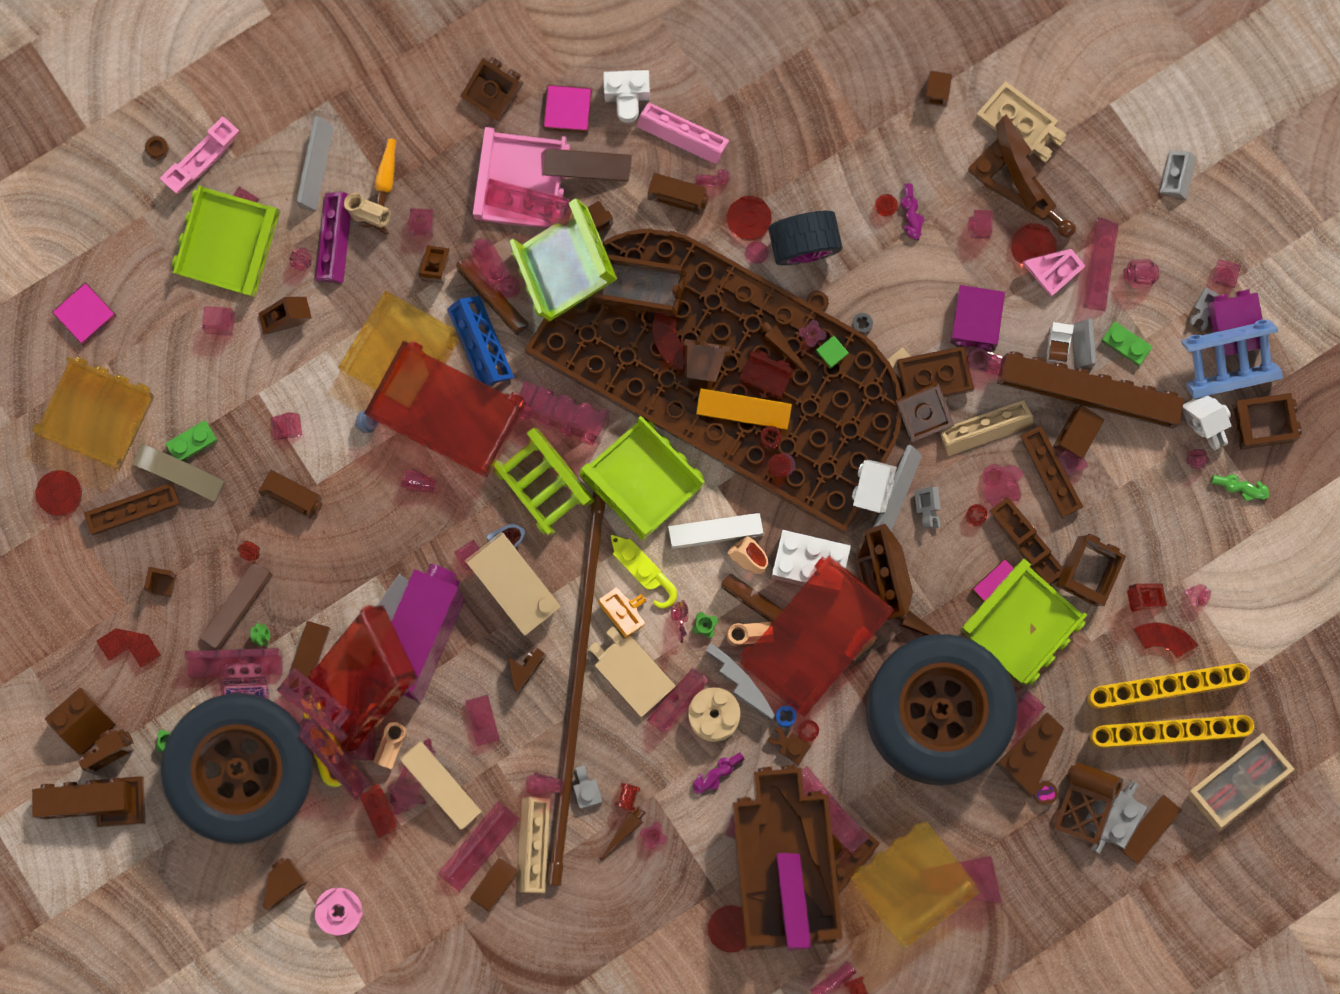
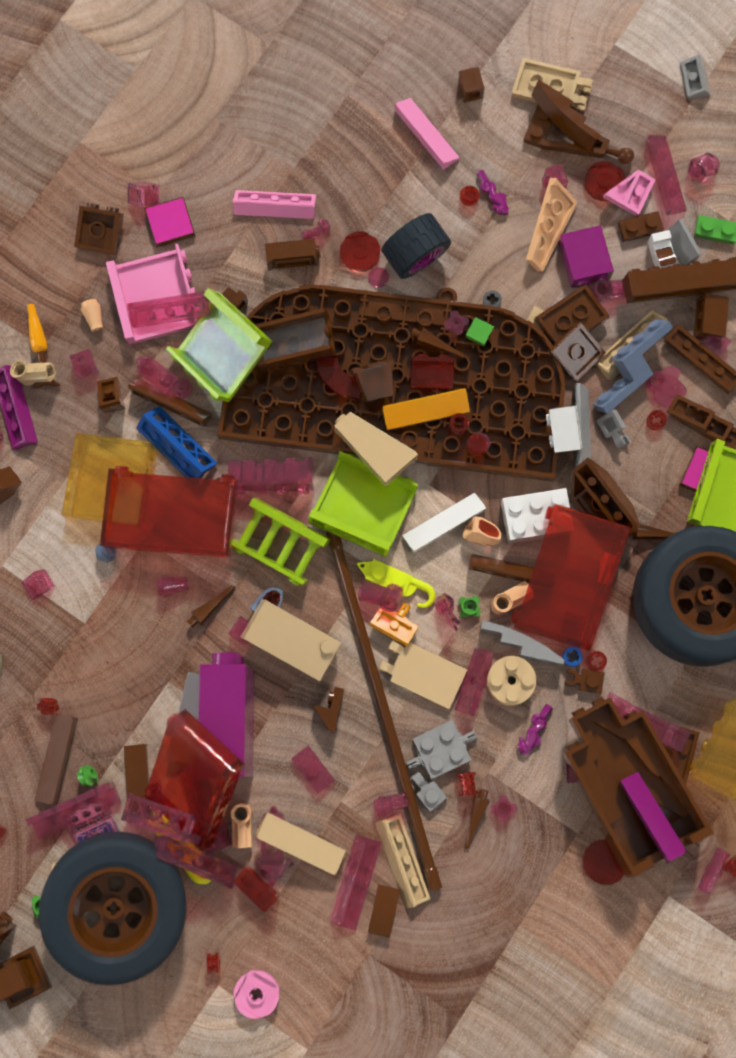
camera: 20 degrees left, 0 degrees up
(282, 882) = (195, 989): reddish brown slope -> none
(291, 494) = (65, 641): reddish brown window -> none
(309, 864) = (213, 963): none -> clear red bush
(438, 521) = (203, 612): none -> reddish brown piece
(450, 174) = (92, 312): none -> light nougat cone
(552, 69) = (143, 193): none -> clear pink panel
(586, 164) = (204, 259): reddish brown slope -> none
(617, 753) = (441, 750): none -> light grey plate
(625, 581) = (386, 597): none -> clear pink piece
(626, 90) = (214, 186): white brick -> none
(677, 430) = (375, 448): none -> tan slope
(870, 120) = (426, 133): none -> bright pink slope
(958, 266) = (552, 220): none -> light nougat wing
(973, 449) = (632, 365): none -> sand blue bracket
(1050, 308) = (640, 226): none -> reddish brown plate

